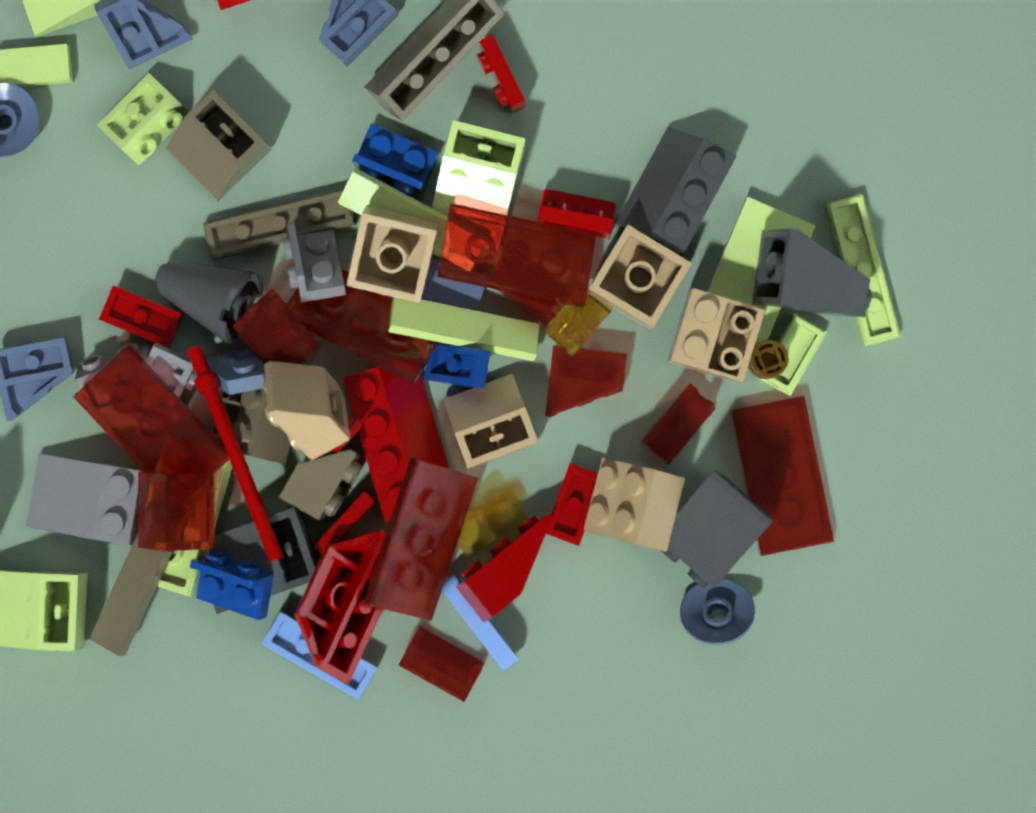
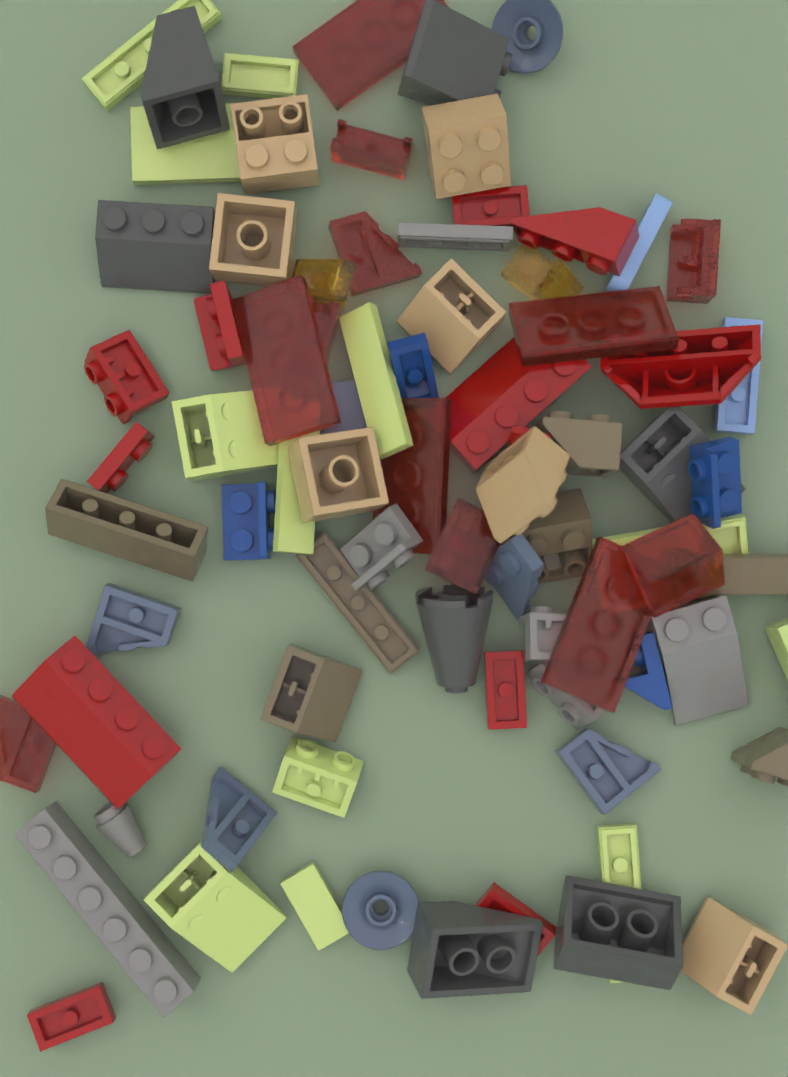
camera: 115 degrees left, 0 degrees up
(87, 444) = (651, 681): none -> blue slope
(208, 384) = (543, 590): red bar -> none
(346, 521) = (597, 404): red tile -> none
(563, 459) = (455, 236): none -> light grey tile
(574, 110) = (124, 376): none -> red bracket
(762, 360) = (277, 74): pearl gold wheel -> none

